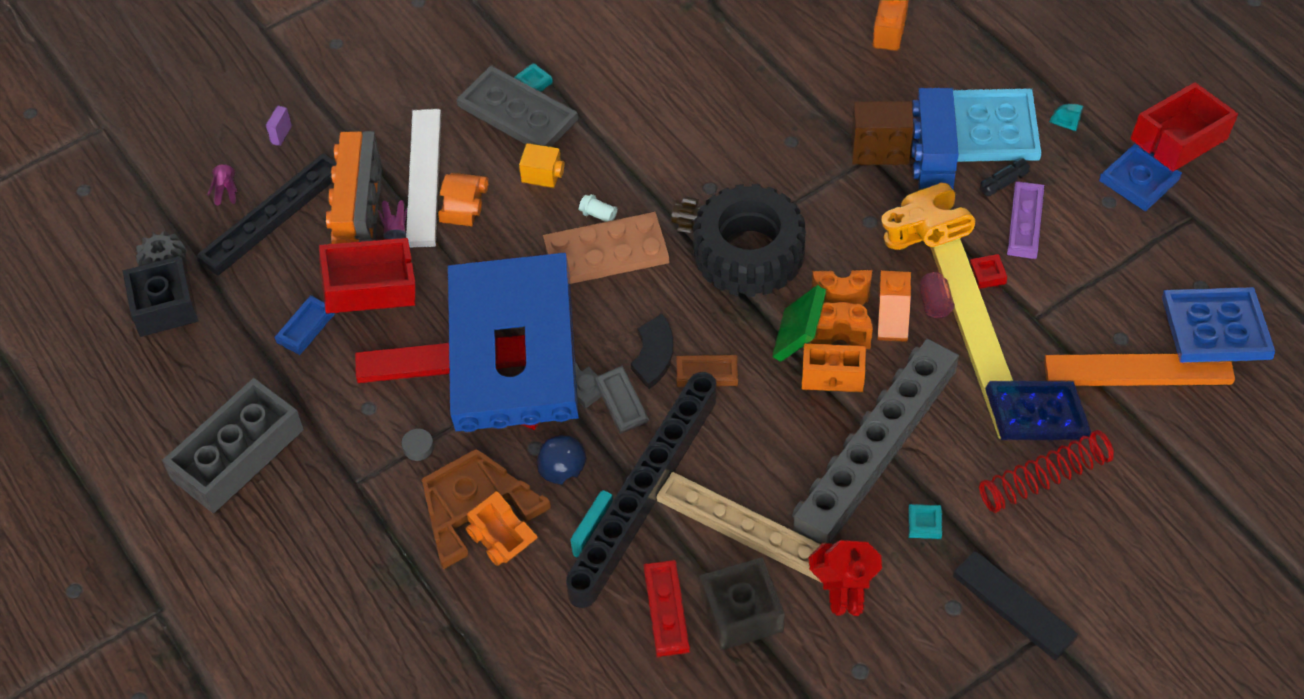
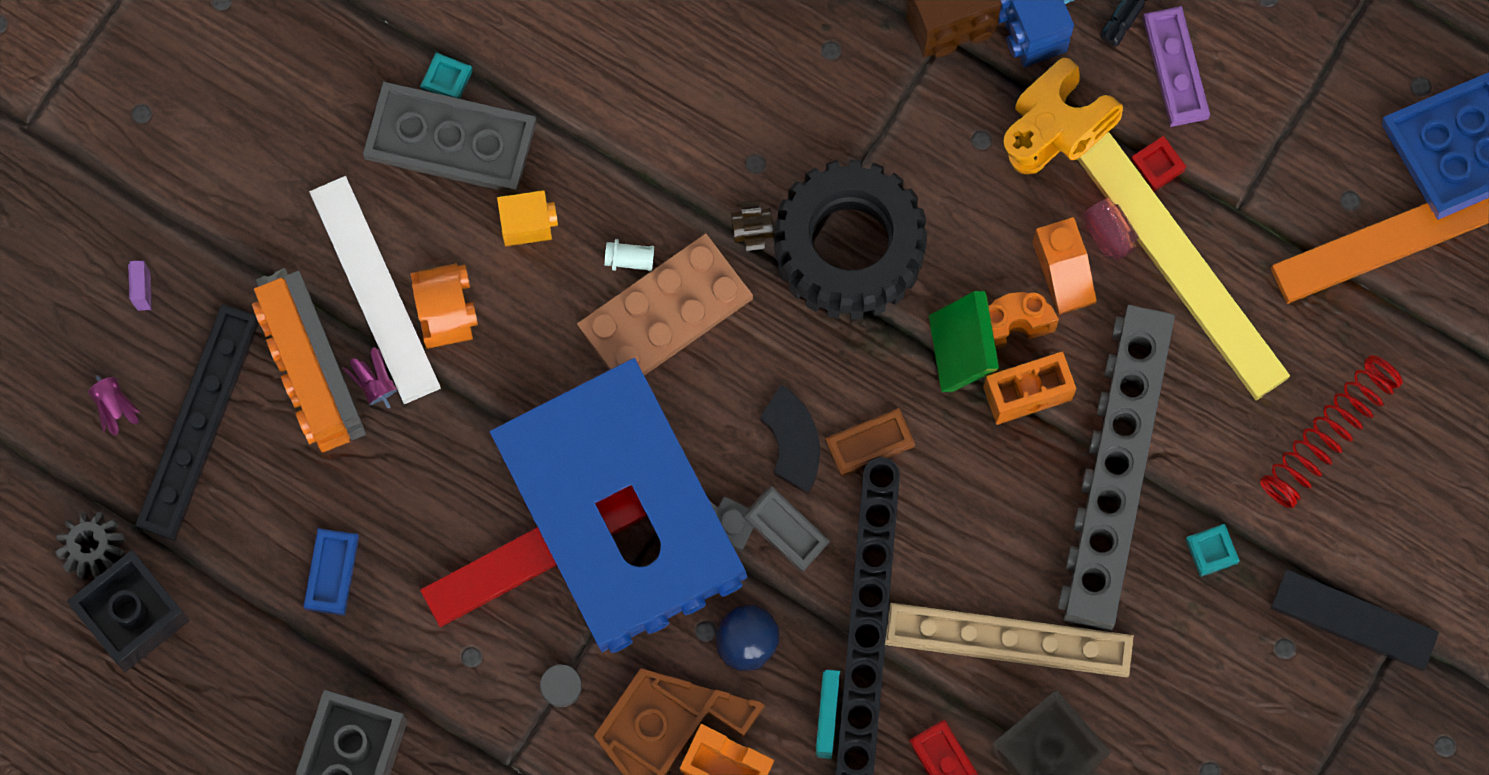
camera: 25 degrees left, 20 degrees up
(367, 275) = (386, 480): red piece -> none
(845, 572) = (1154, 664): red hinge -> none
(851, 289) = (994, 274): orange cylinder -> none
(1037, 410) = (1293, 353): clear blue plate -> none

